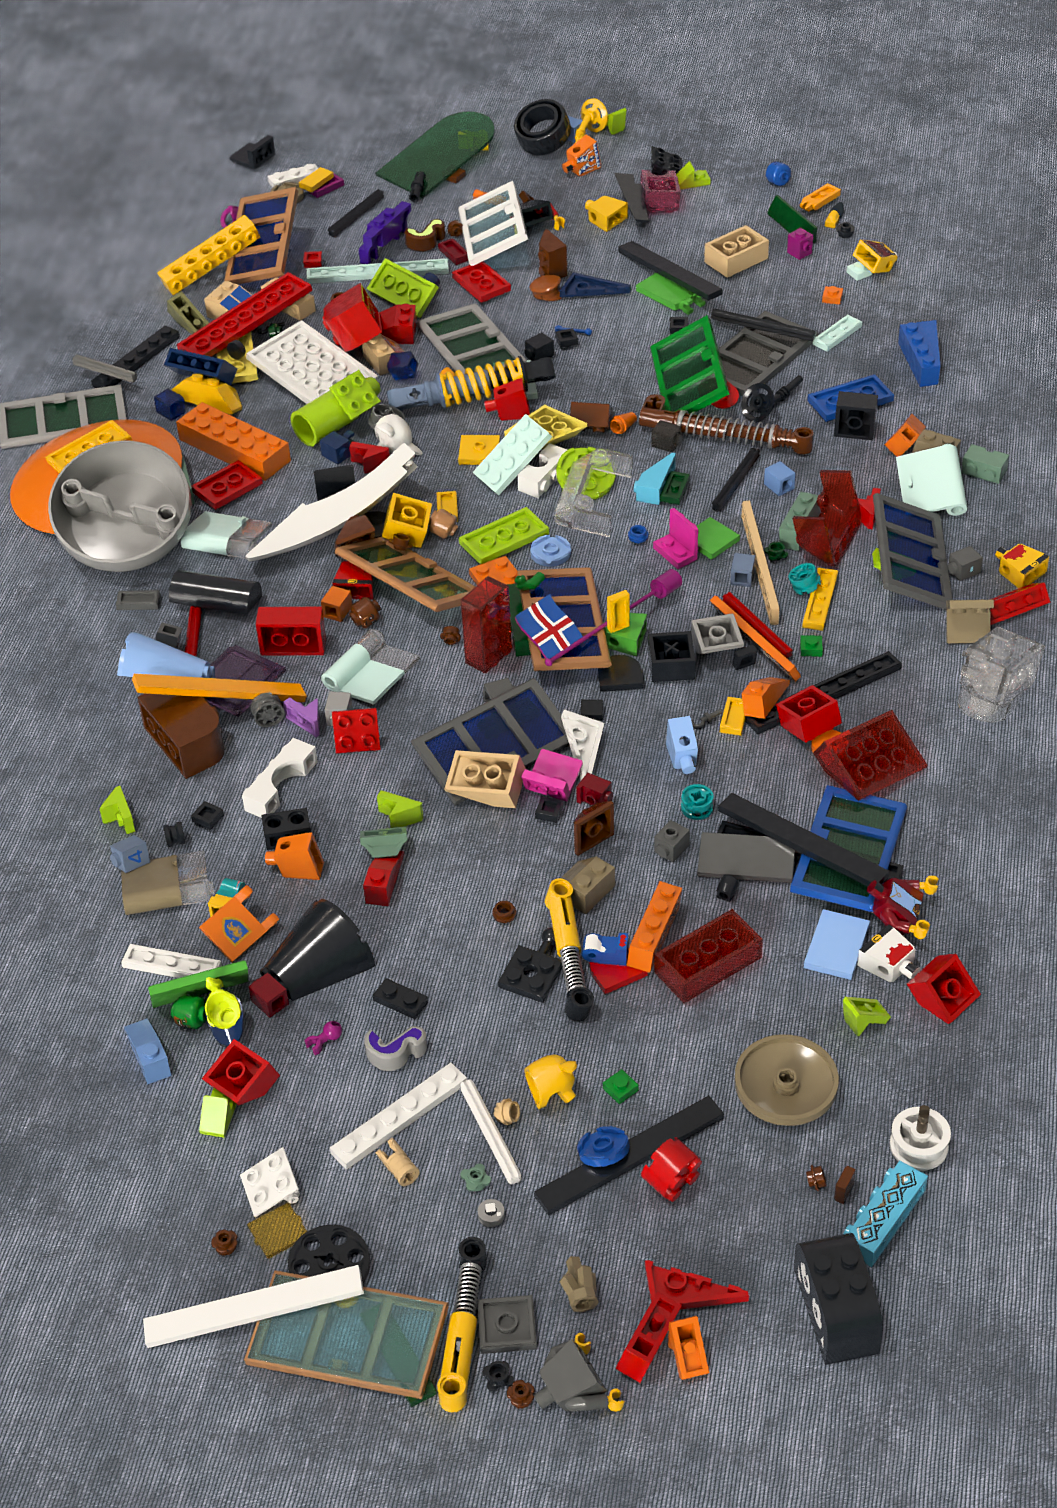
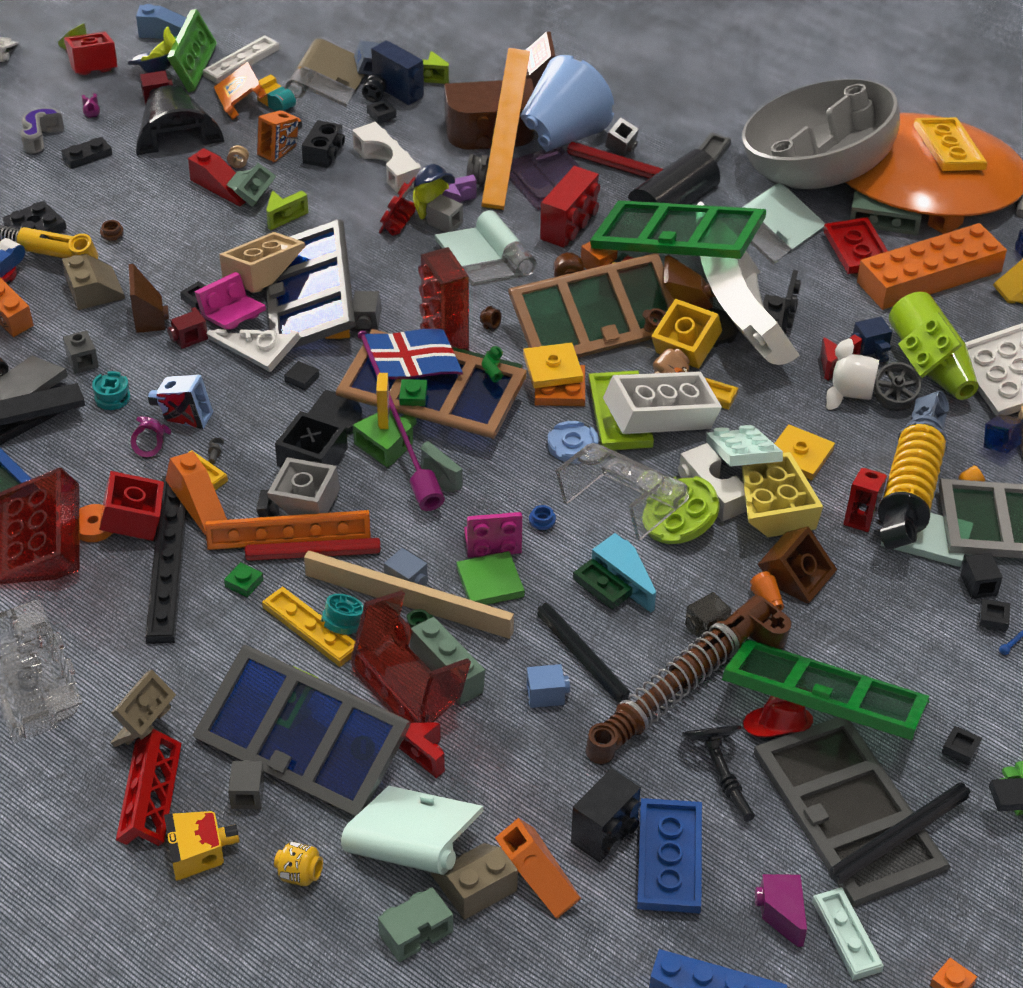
camera: 115 degrees right, 0 degrees up
(78, 728) = (540, 54): none -> slope
(151, 811) = (400, 70): none -> dark blue brick
(299, 546) = (678, 229): none -> green door
(325, 701) = (428, 185): none -> hair
(342, 878) = (234, 161): none -> tan bush
(490, 566) = (553, 365): none -> yellow plate
(498, 501) = (661, 402): none -> white brick
(586, 614) = (413, 392): none -> green plate
(637, 591) = (446, 471): none -> sand green slope
(717, 753) = (155, 425): none -> magenta piece
(844, 350) = (783, 905): none -> magenta slope
(995, 517) = (298, 864): none -> yellow head

